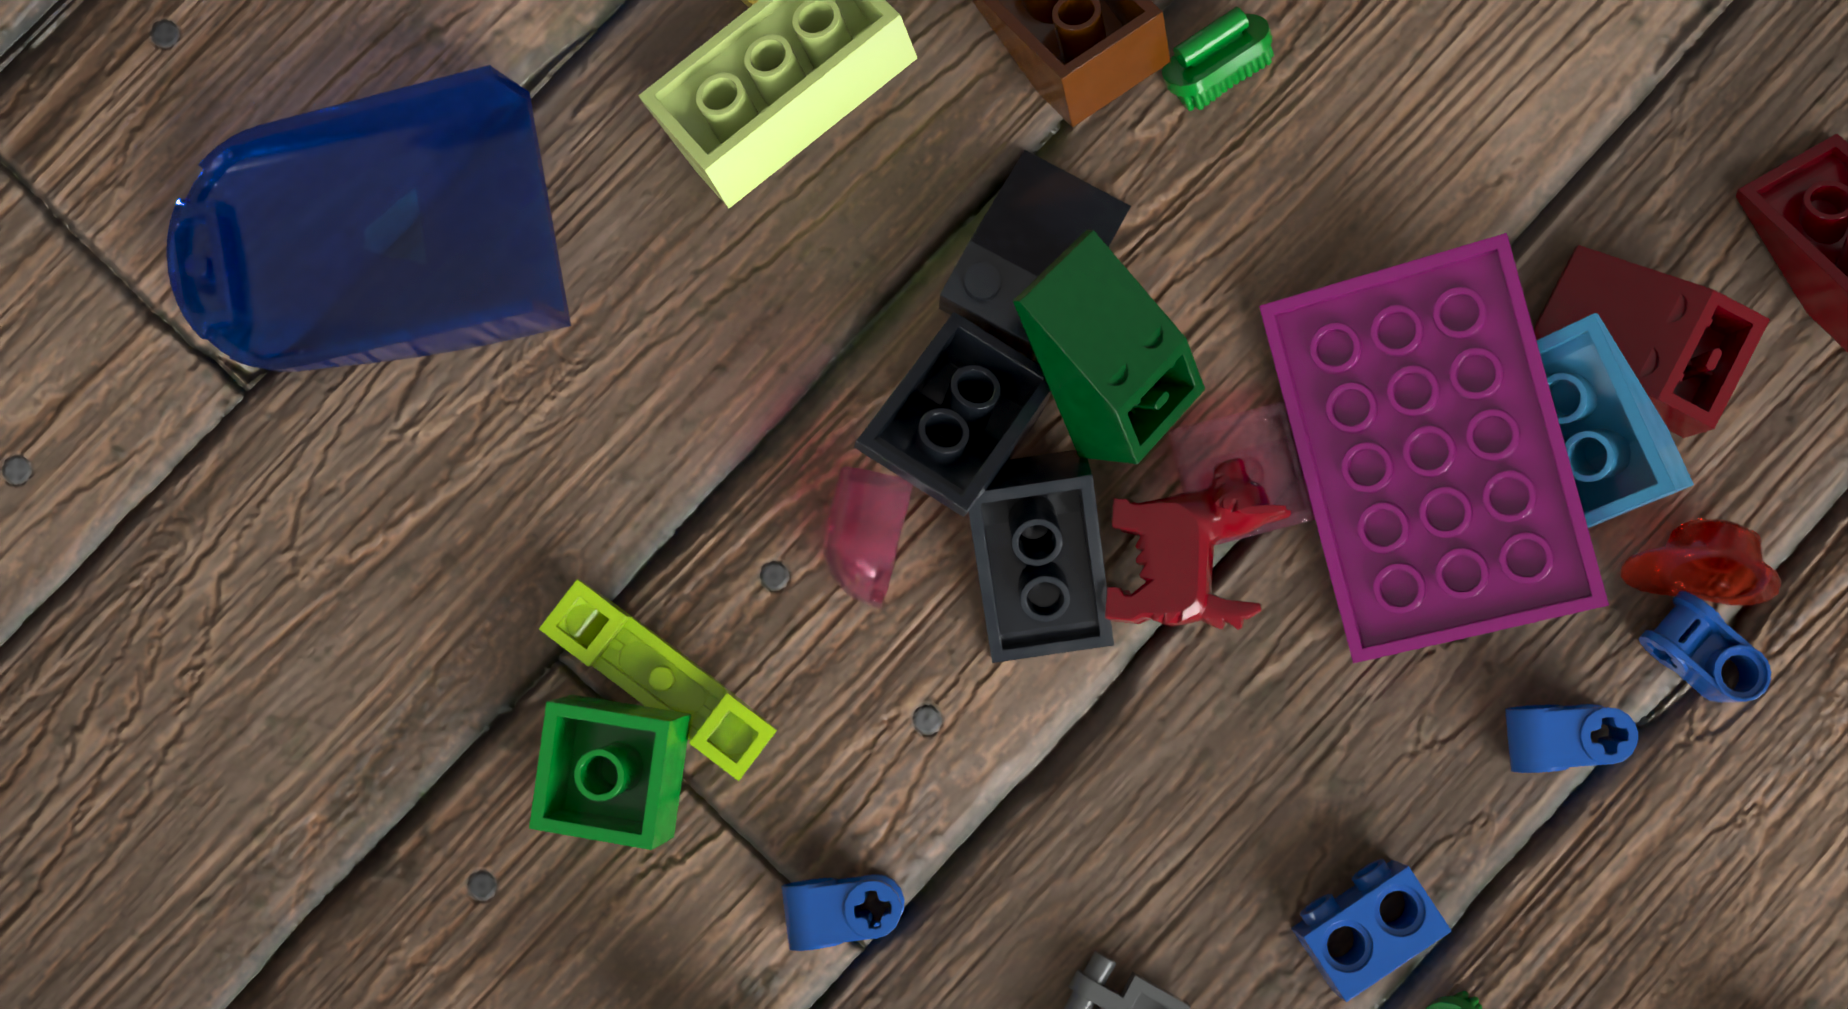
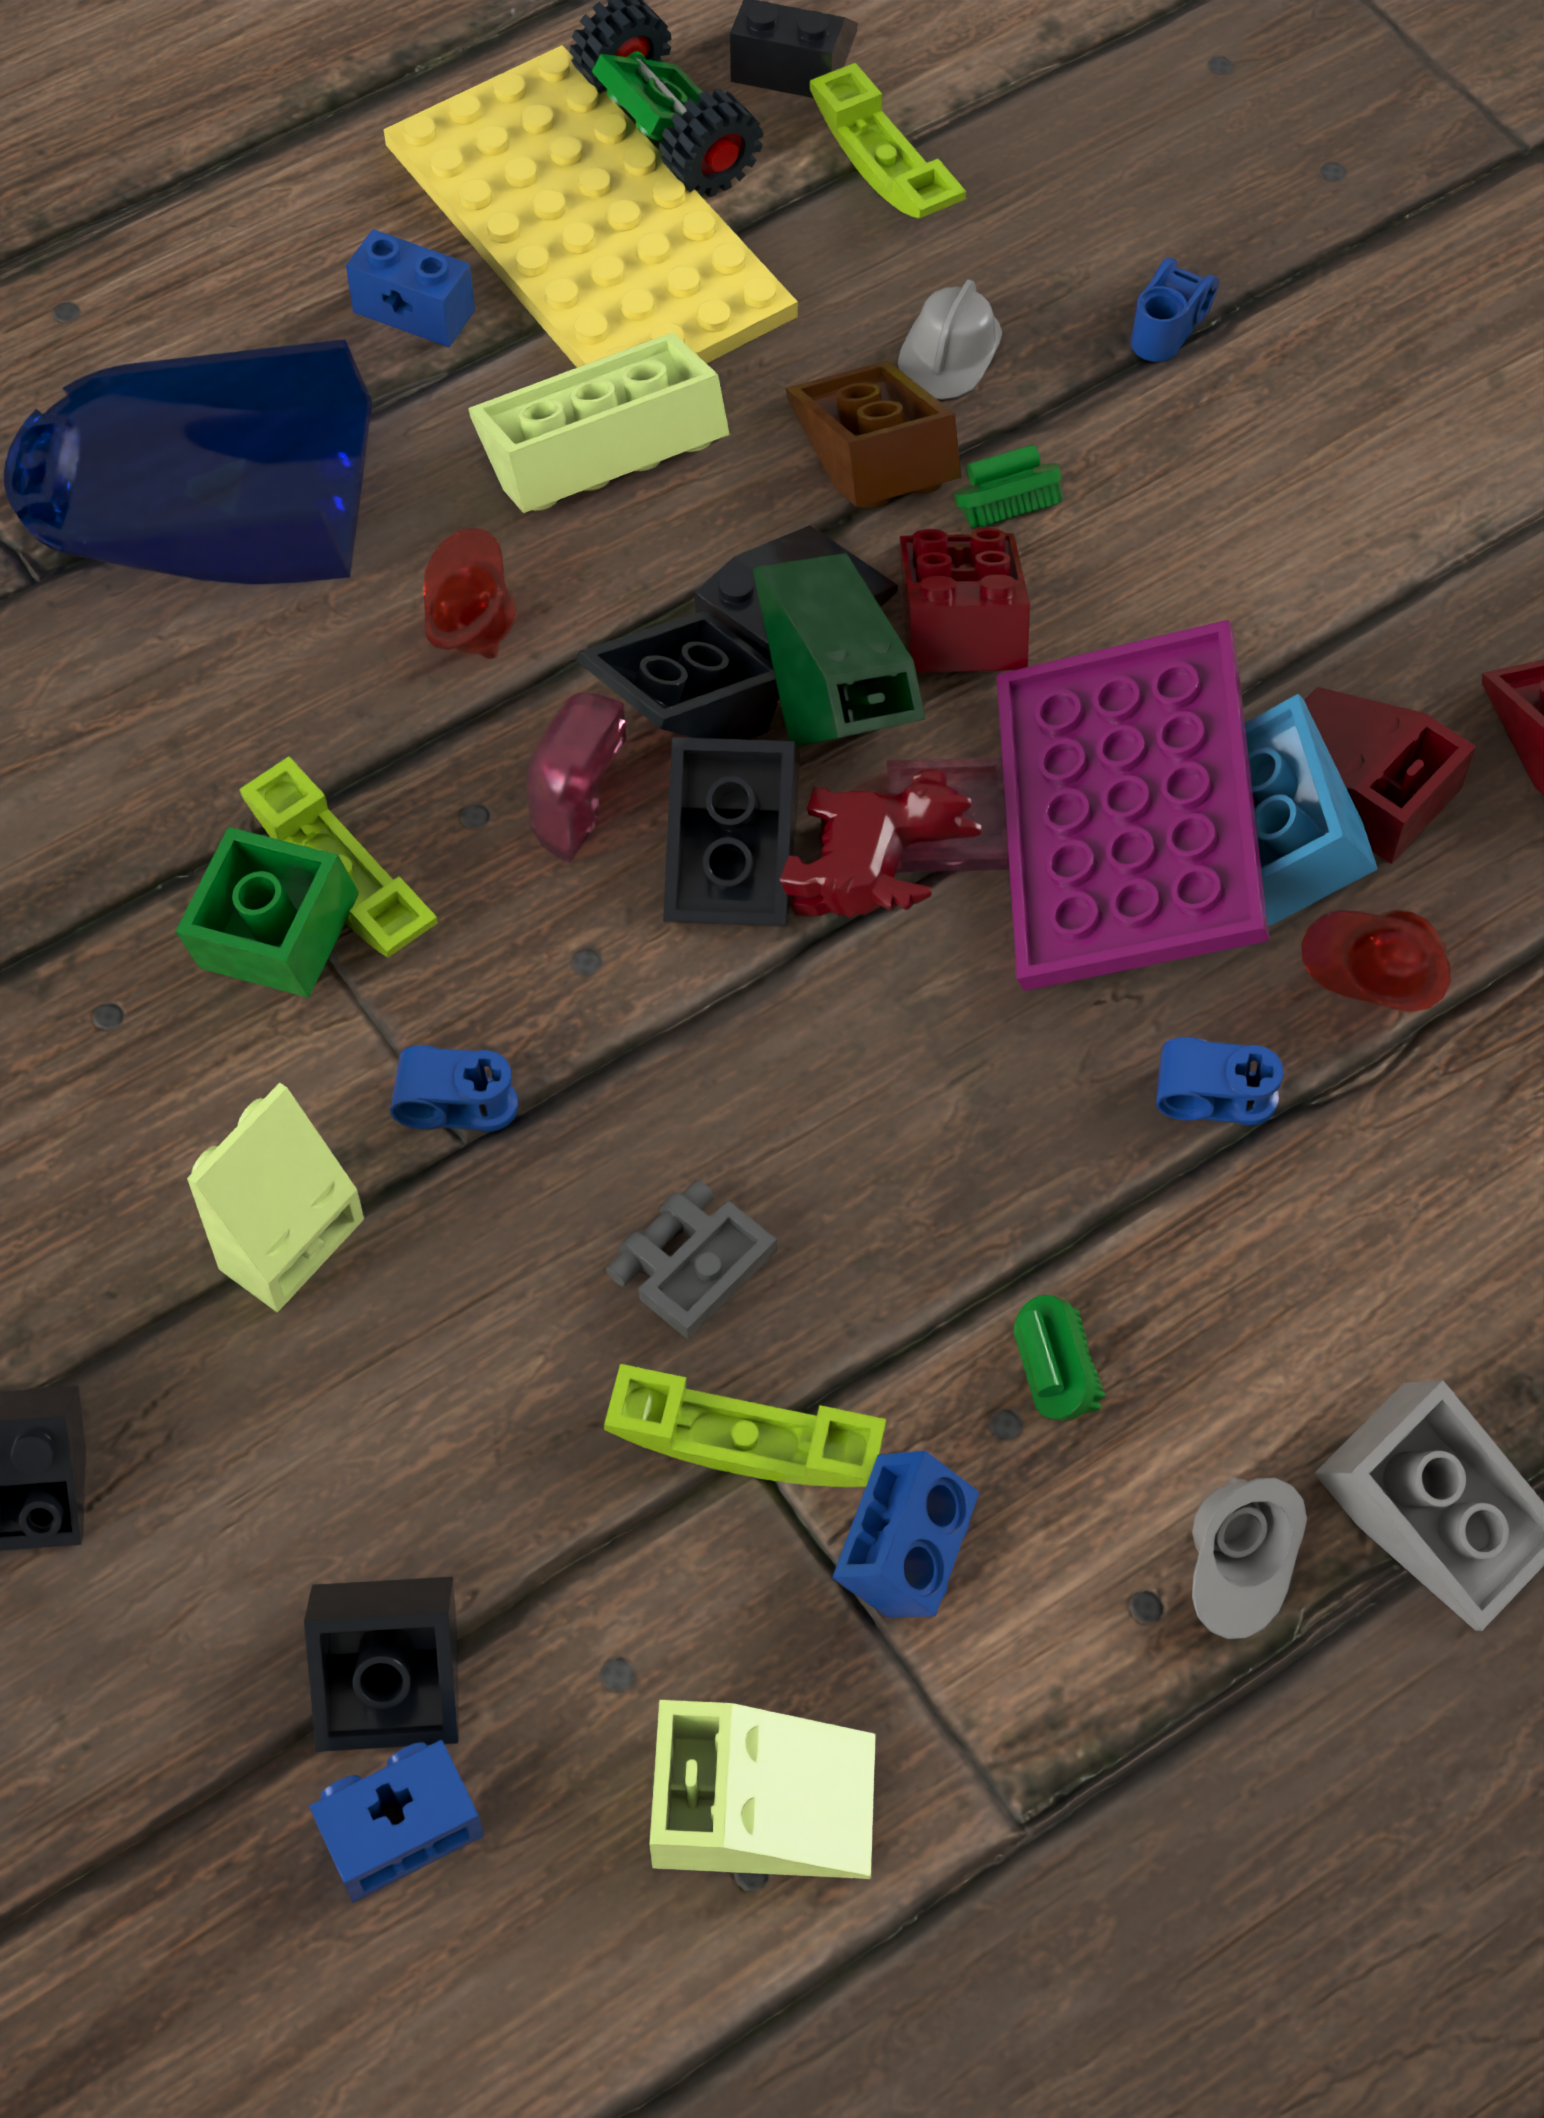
camera: 15 degrees right, 25 degrees down
(700, 335) = (468, 595): none -> clear red piece
(1206, 217) = (964, 601): none -> dark red slope
(1377, 944) = (985, 1223): blue brick -> none
(1698, 642) = (1367, 1031): blue piece -> none

